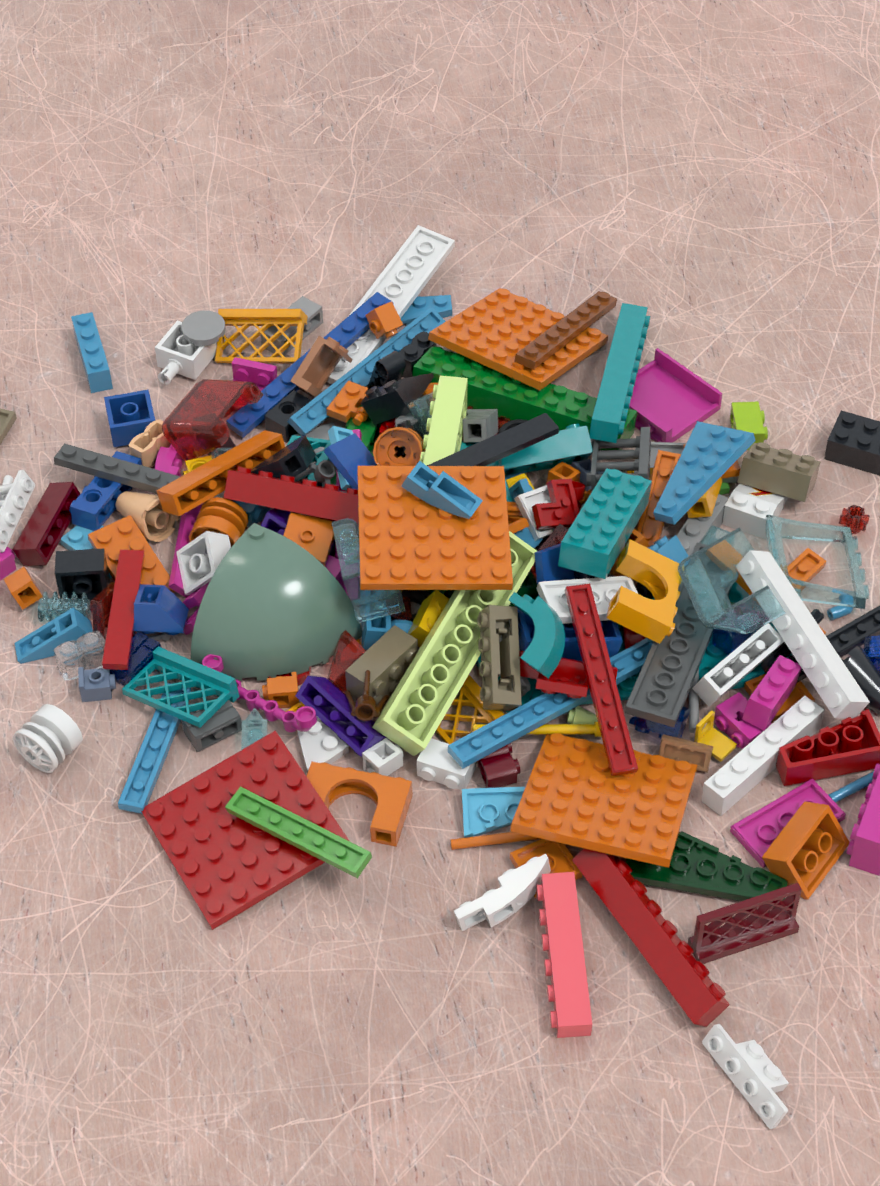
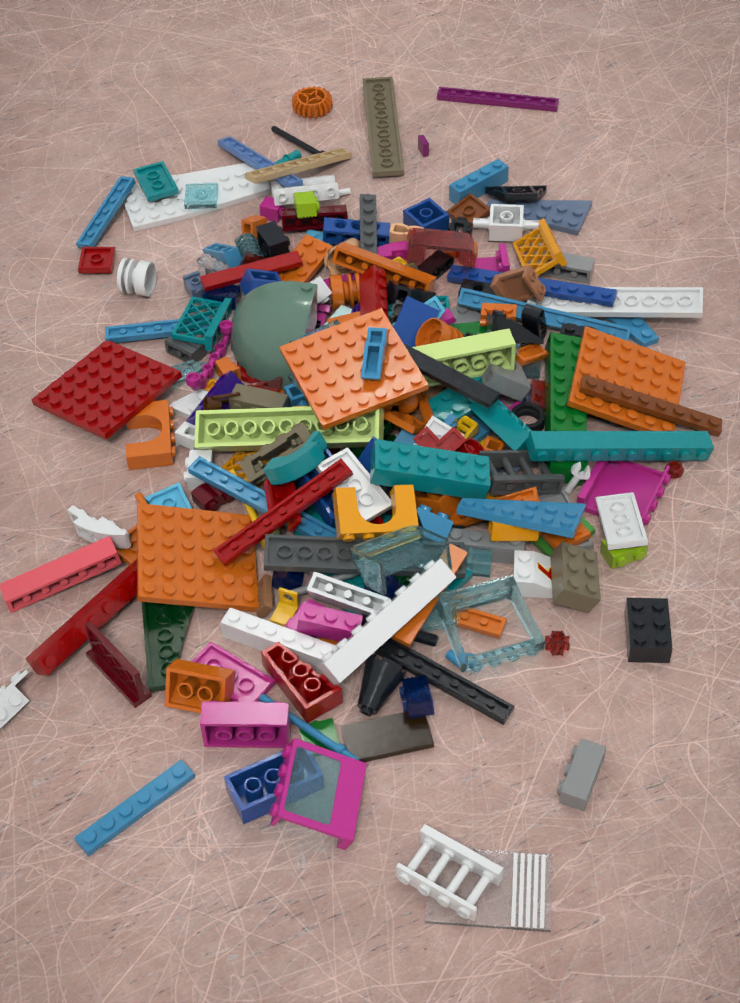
camera: 70 degrees right, 0 degrees up
(39, 514) = (306, 204): none -> lime brick
(134, 325) = (514, 193): none -> black wing
(135, 376) = (468, 208): none -> dark orange tile
(168, 393) = (460, 222): none -> black brick
(189, 297) = (560, 215): none -> sand blue wing
(203, 328) = (520, 217): light grey tile -> none
(299, 832) = (97, 406): bright green plate -> none
(384, 321) = (587, 302): orange brick -> none
(637, 416) = (575, 470): none -> white bar
(649, 351) = (676, 469): none -> clear red plate
(720, 408) = (621, 521): none -> white tile

